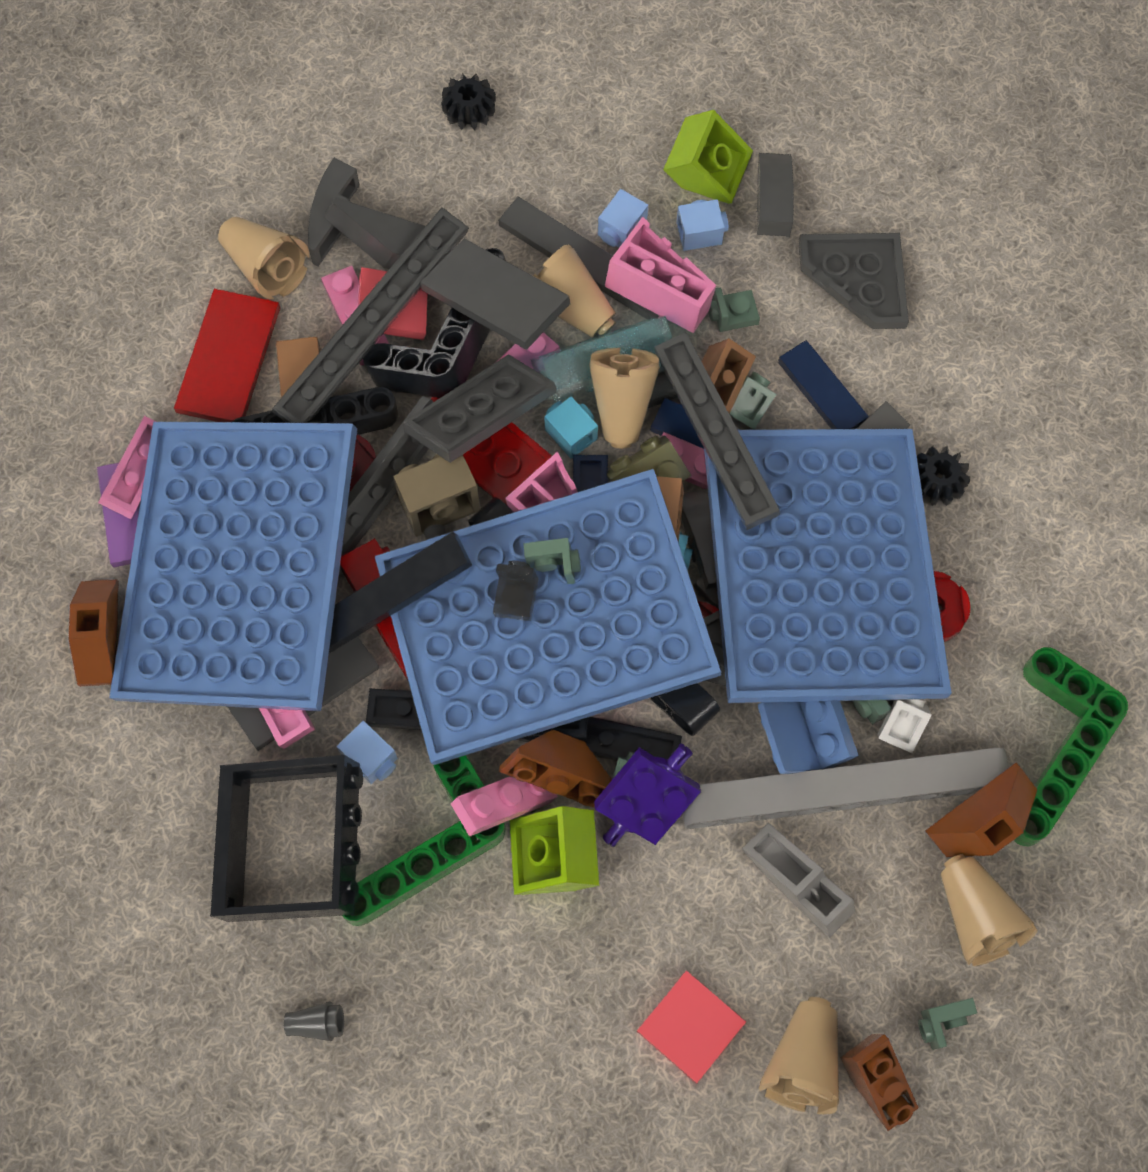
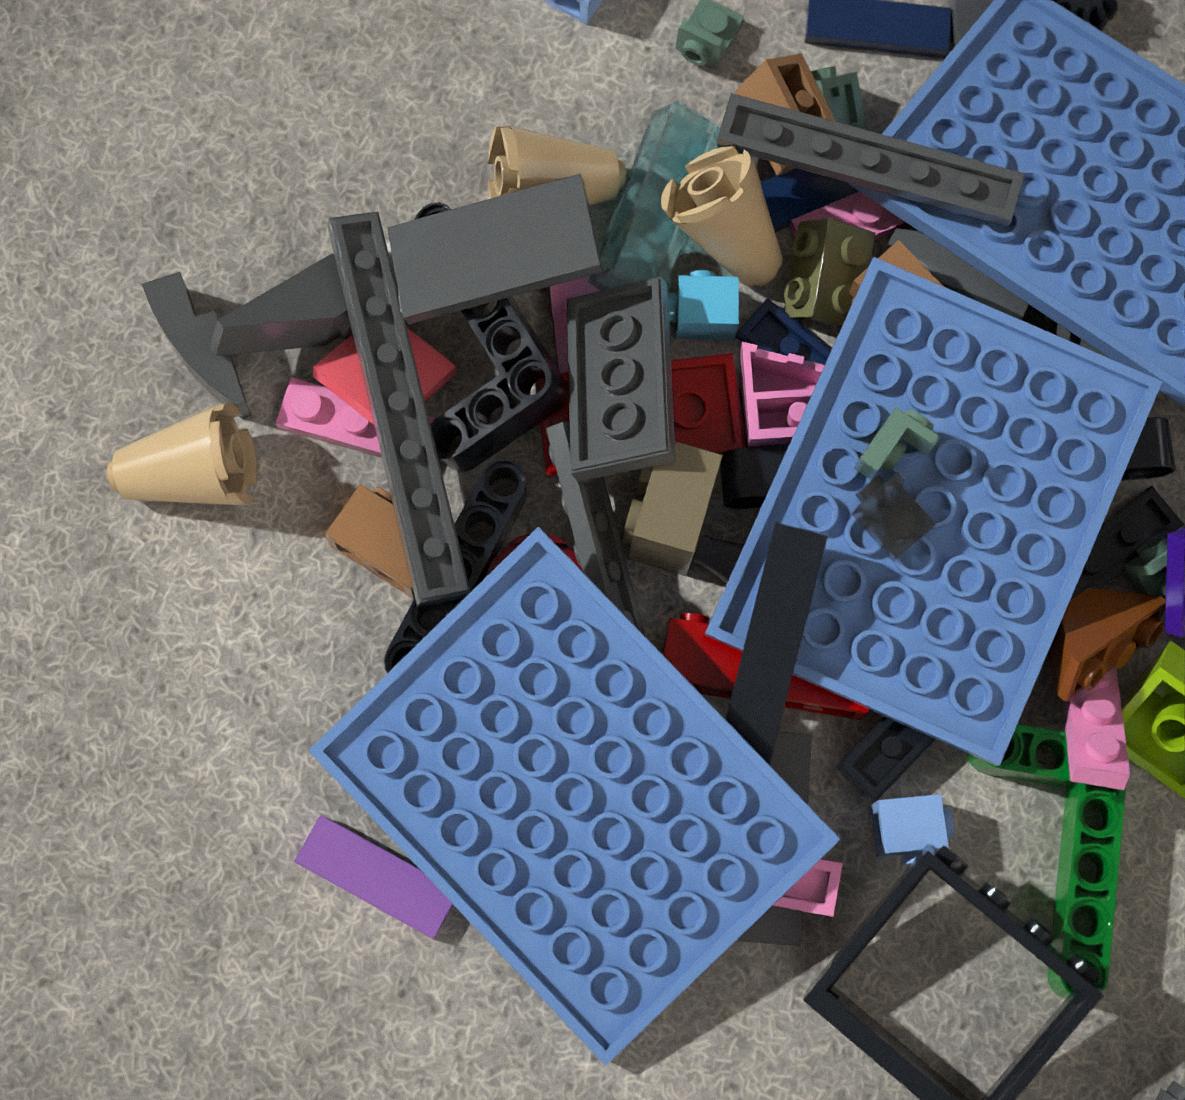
camera: 55 degrees left, 5 degrees up
(94, 631) = (507, 1018): dark orange slope -> none
(126, 483) = (352, 835): bright pink plate -> none
(227, 357) = (280, 605): red tile -> none
(468, 101) = (180, 90): black gear -> none
(550, 235) = (466, 136): dark grey tile -> none
(620, 218) = (506, 50): light blue brick -> none
(659, 278) = (623, 70): bright pink wedge -> none

